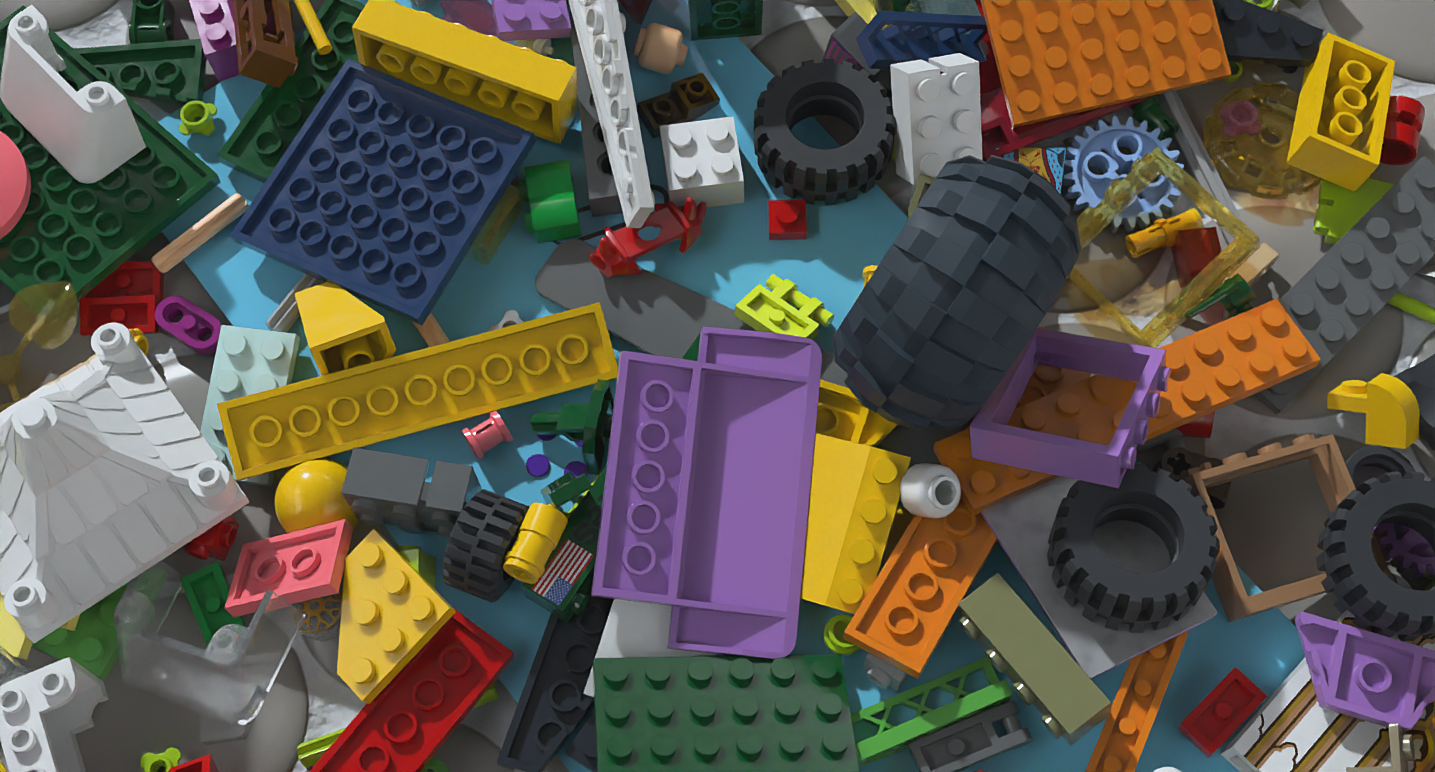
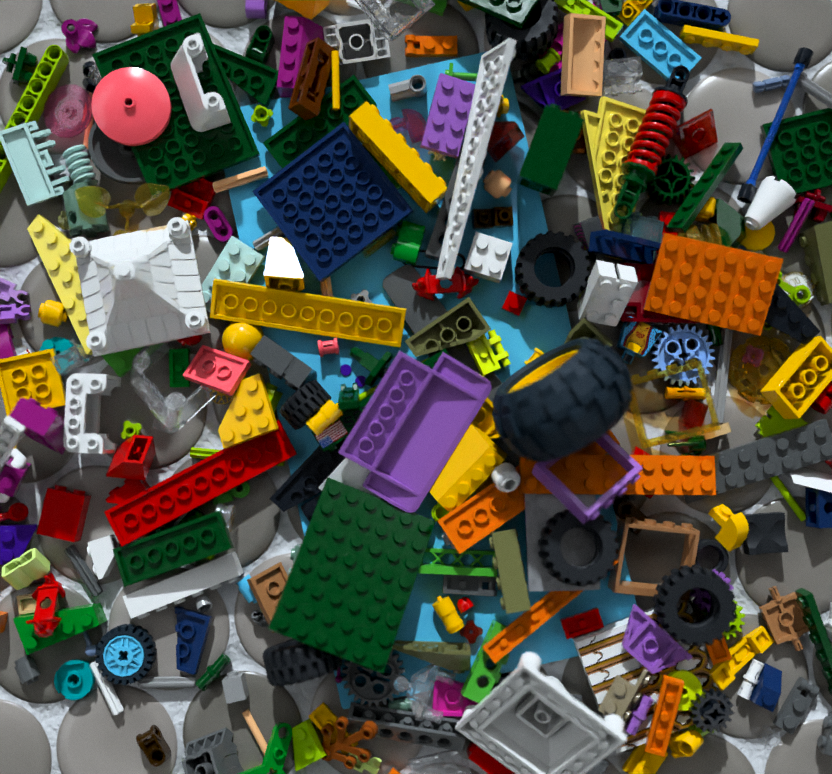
camera: 30 degrees right, 20 degrees up
(699, 294) = (451, 329): none -> olive wedge

